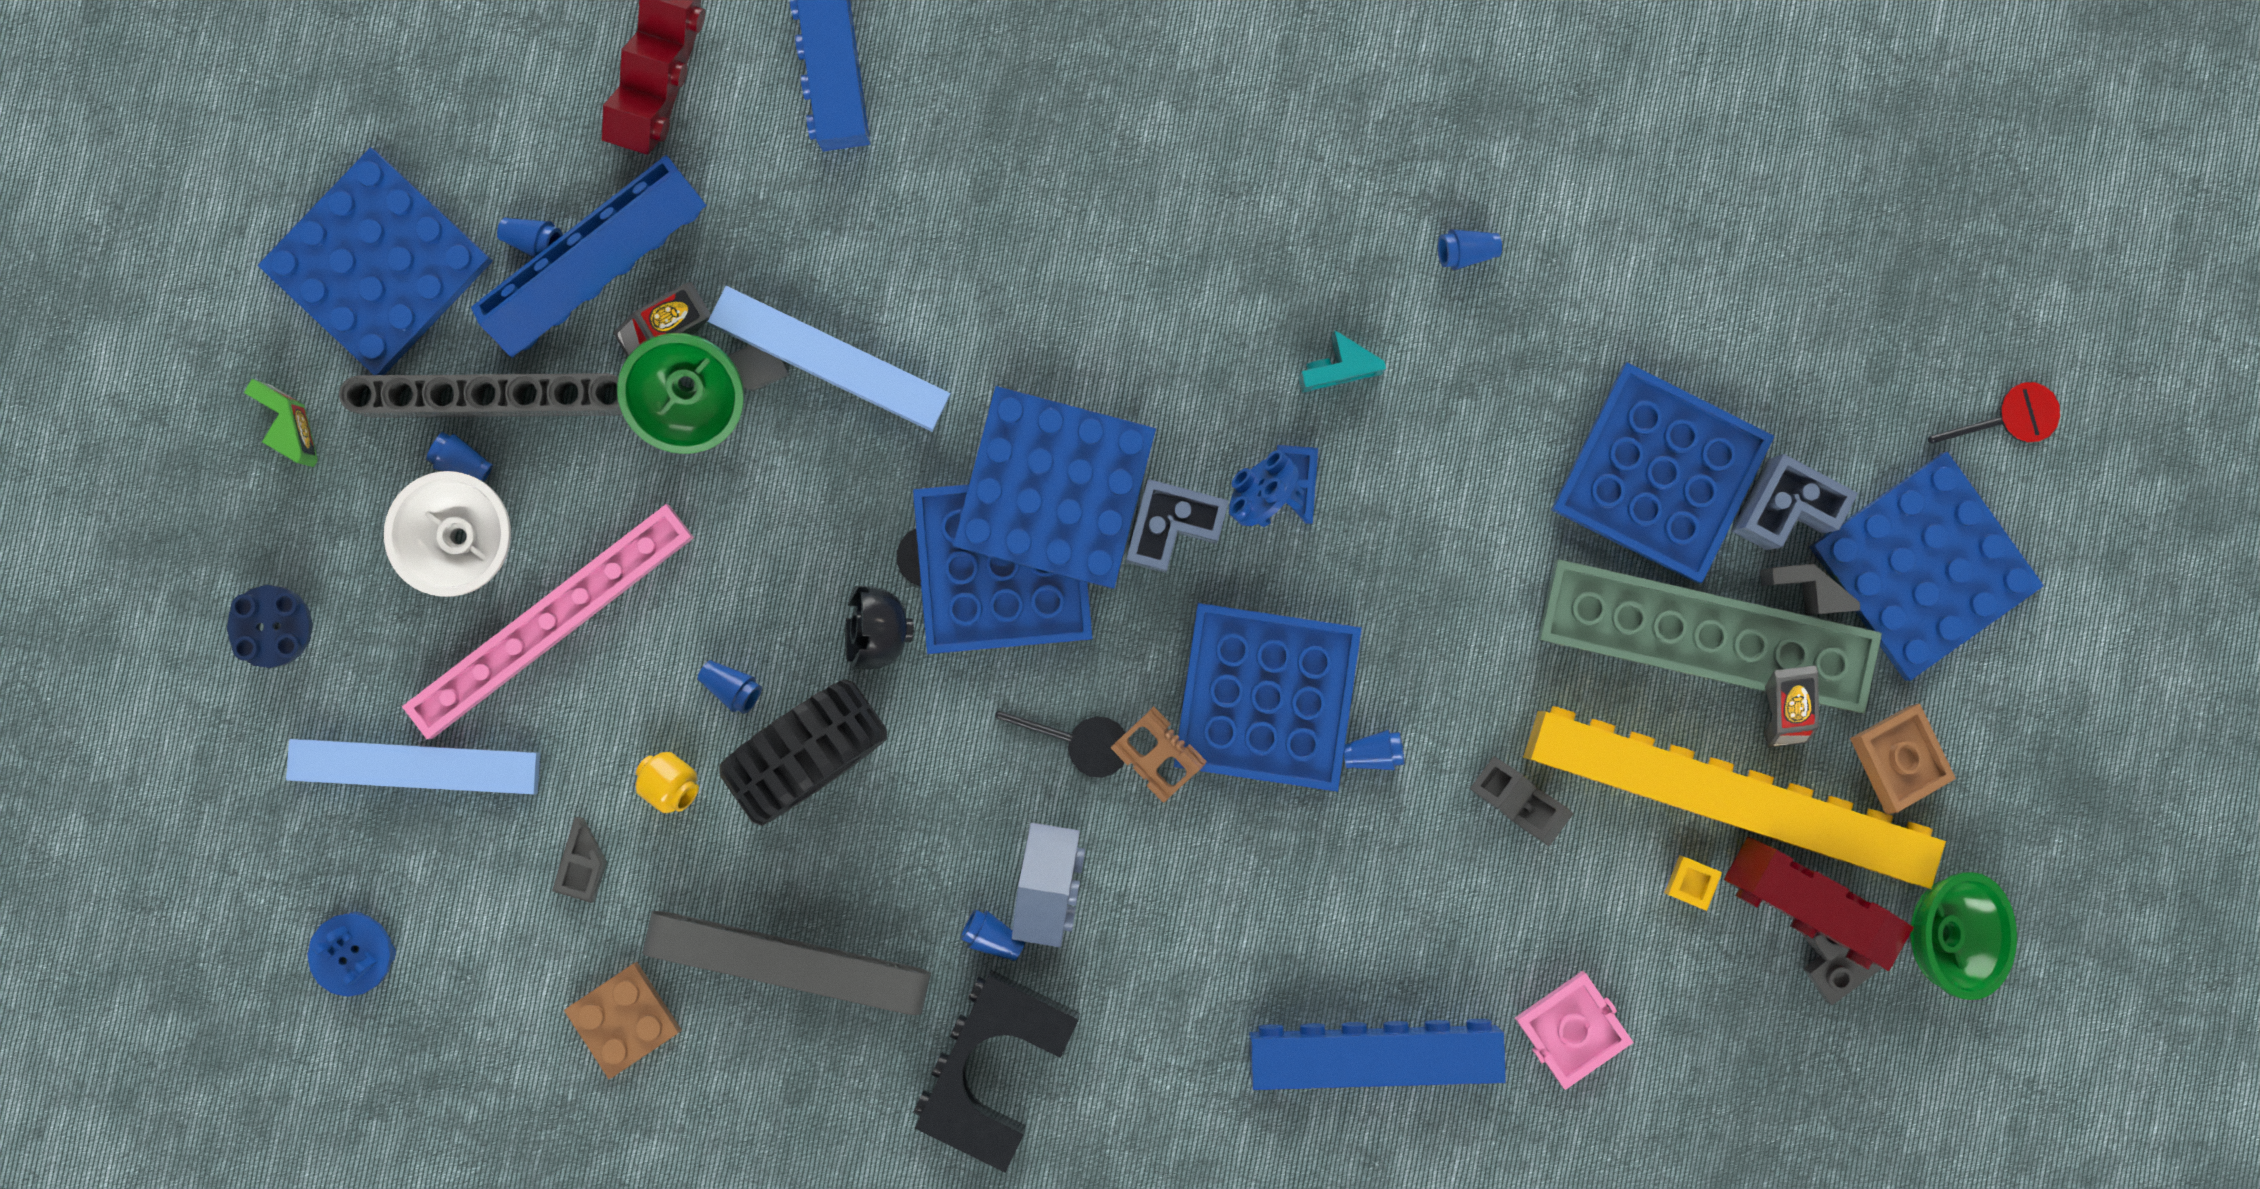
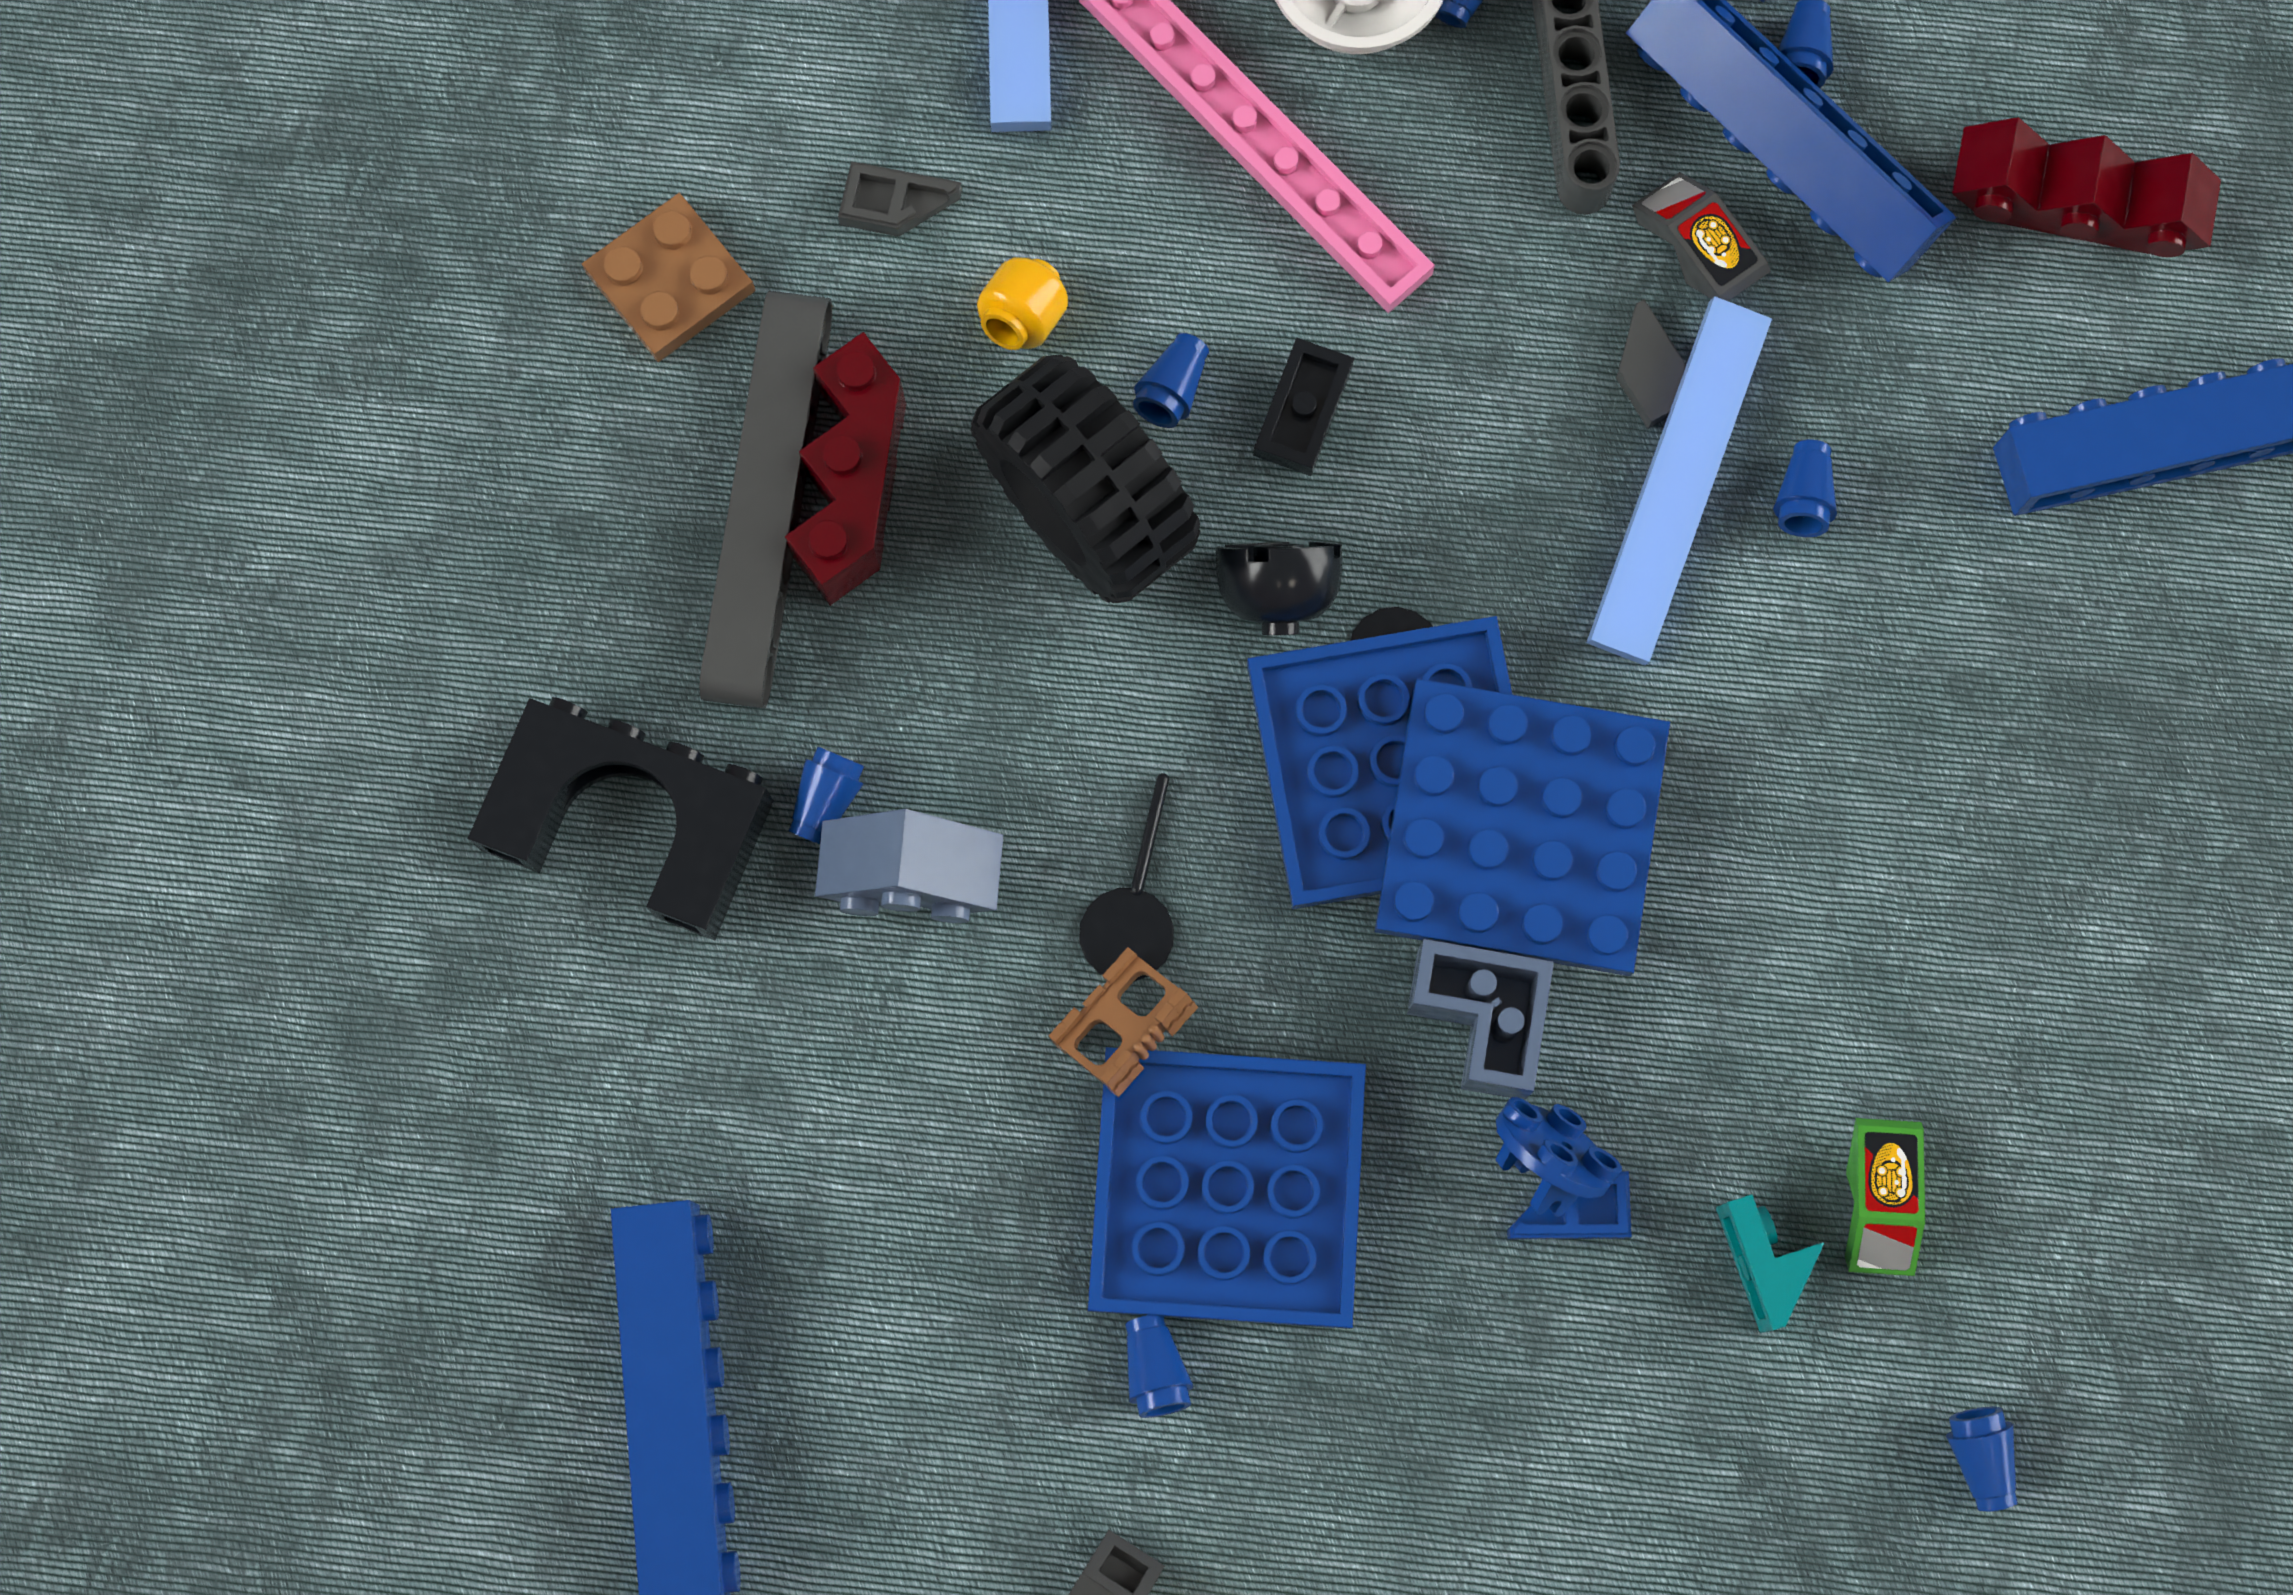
camera: 85 degrees right, 10 degrees down
(675, 415) = (1579, 247): green hat -> none
(755, 600) = (1303, 406): none -> black plate
(773, 903) = (851, 469): none -> dark red brick
(843, 276) = (1807, 491): none -> blue cone
(1306, 286) = (1888, 1196): none -> slope

